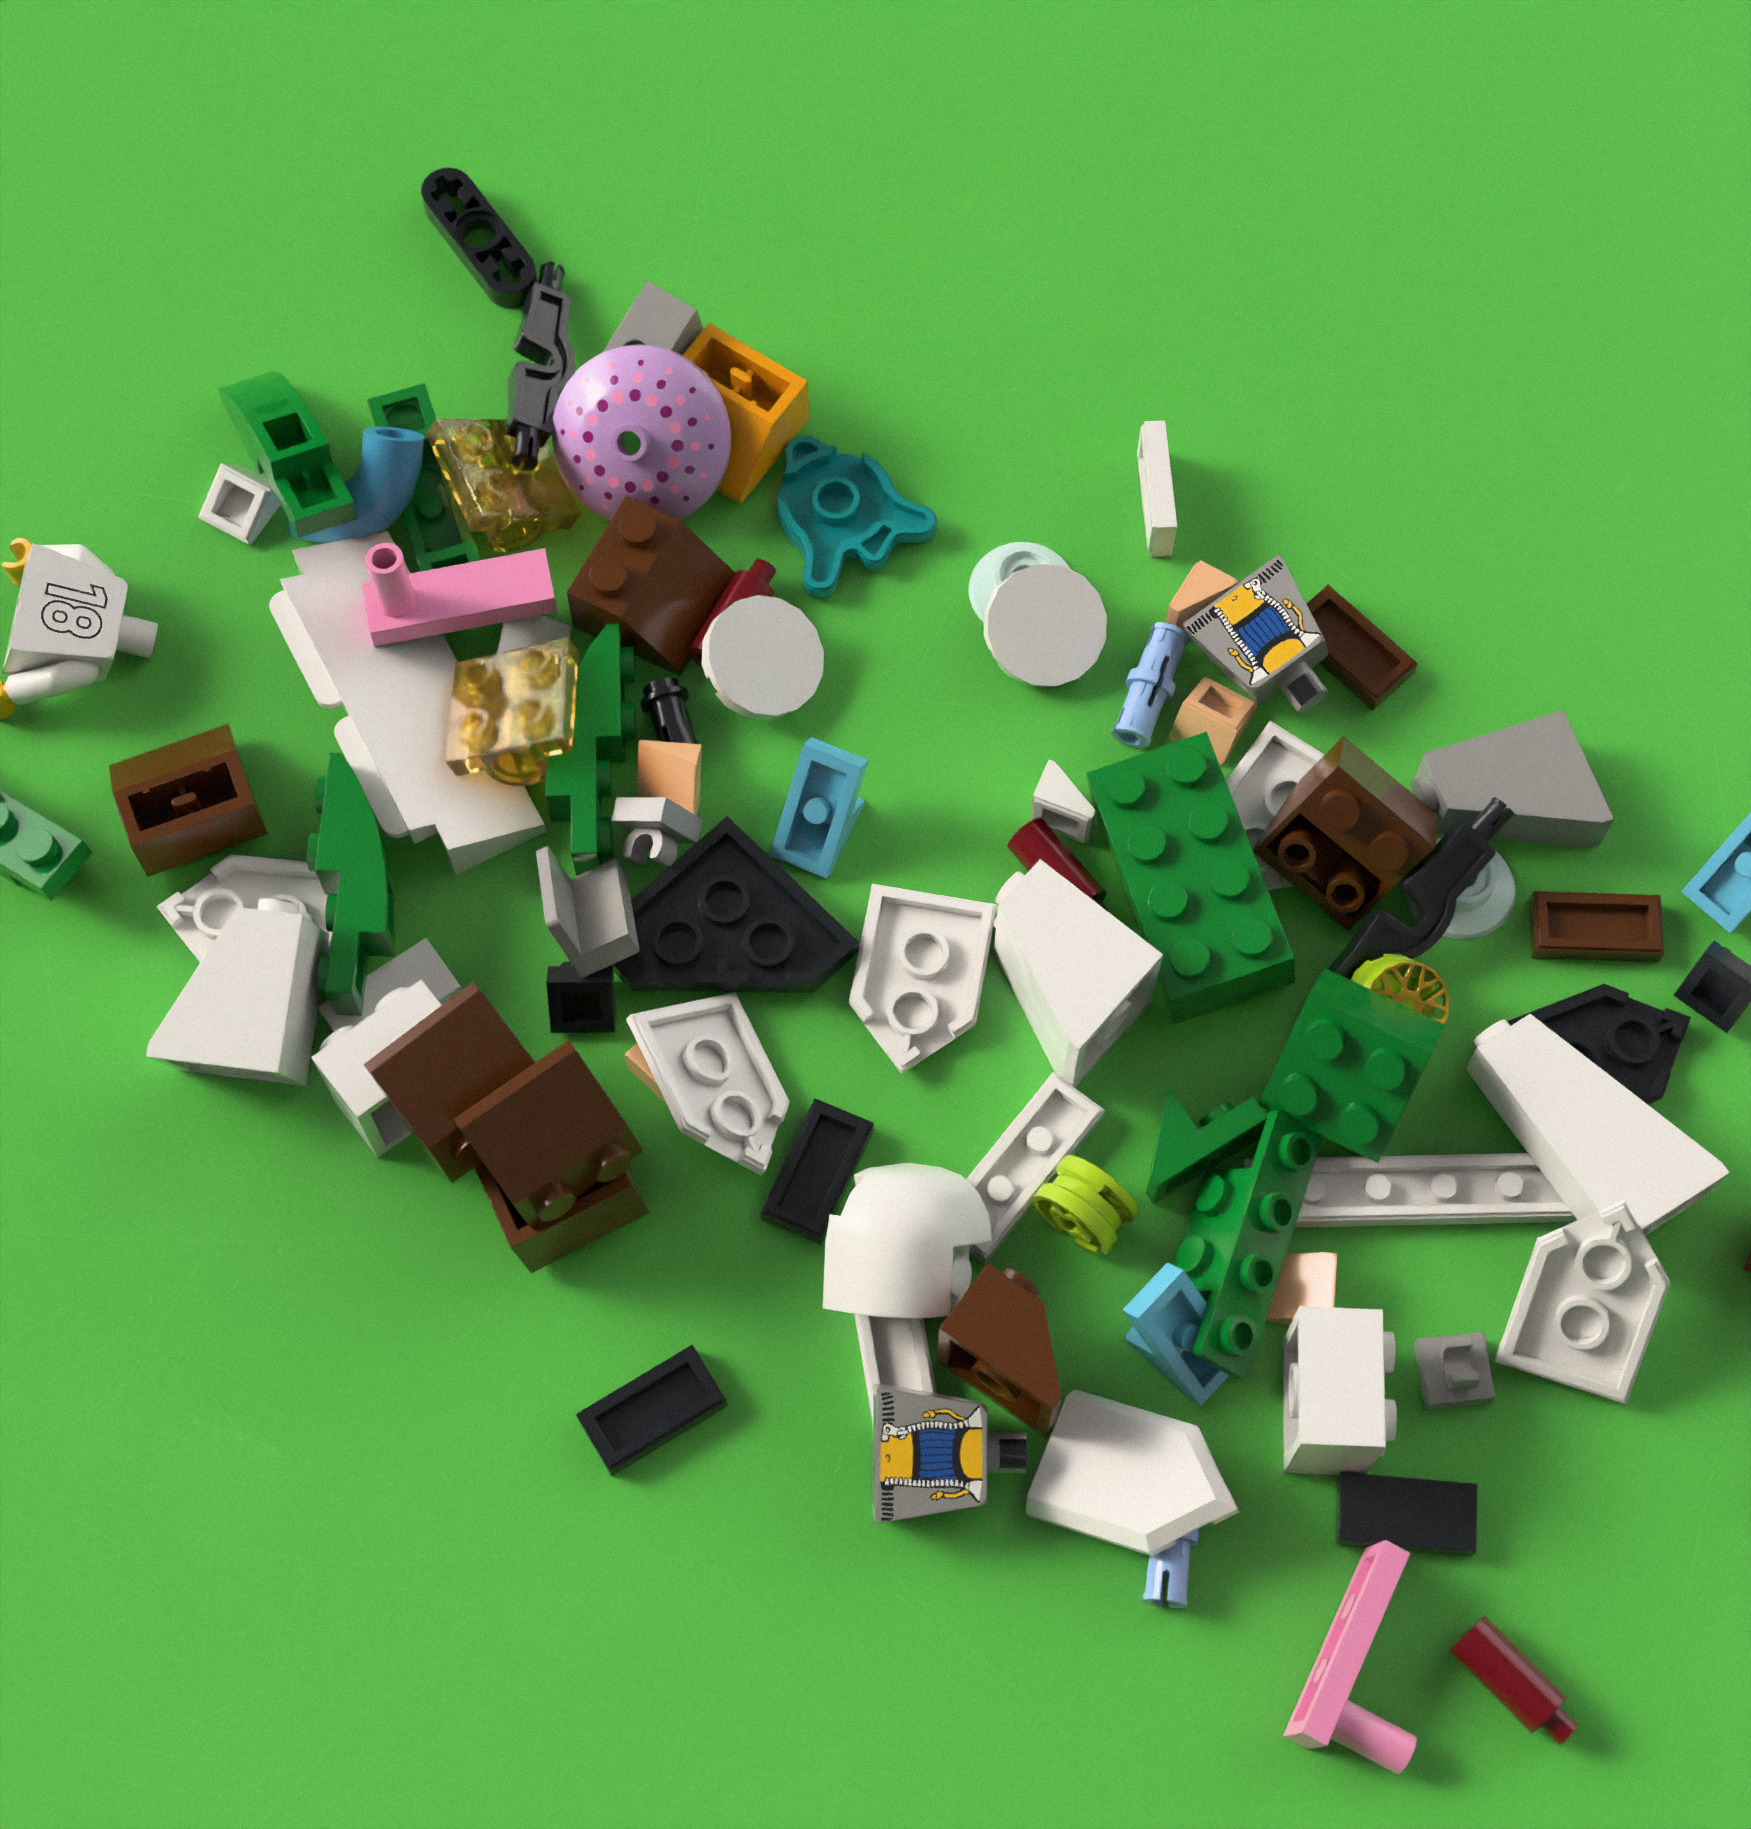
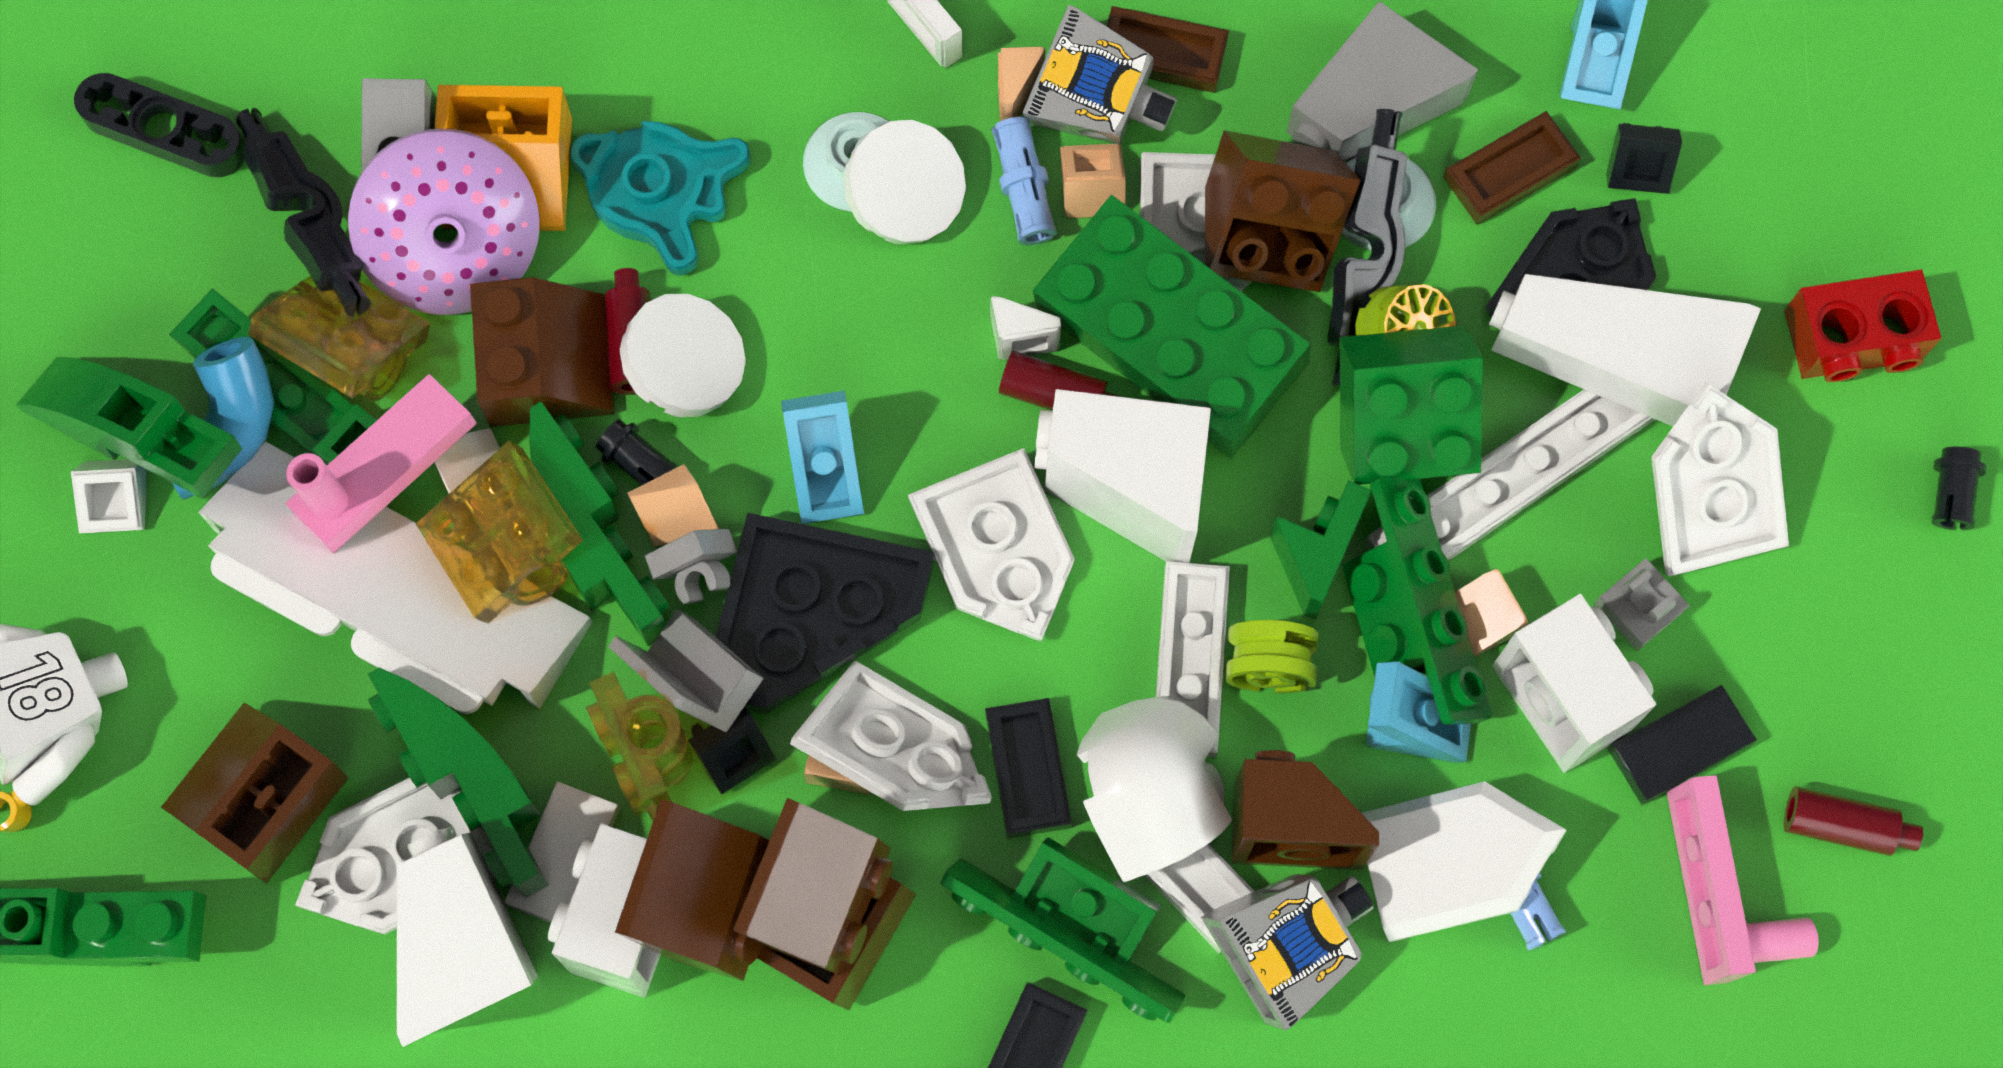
camera: 35 degrees left, 5 degrees up
(510, 943) = (625, 729): none -> clear yellow plate
(769, 1317) = (1076, 916): none -> green bracket

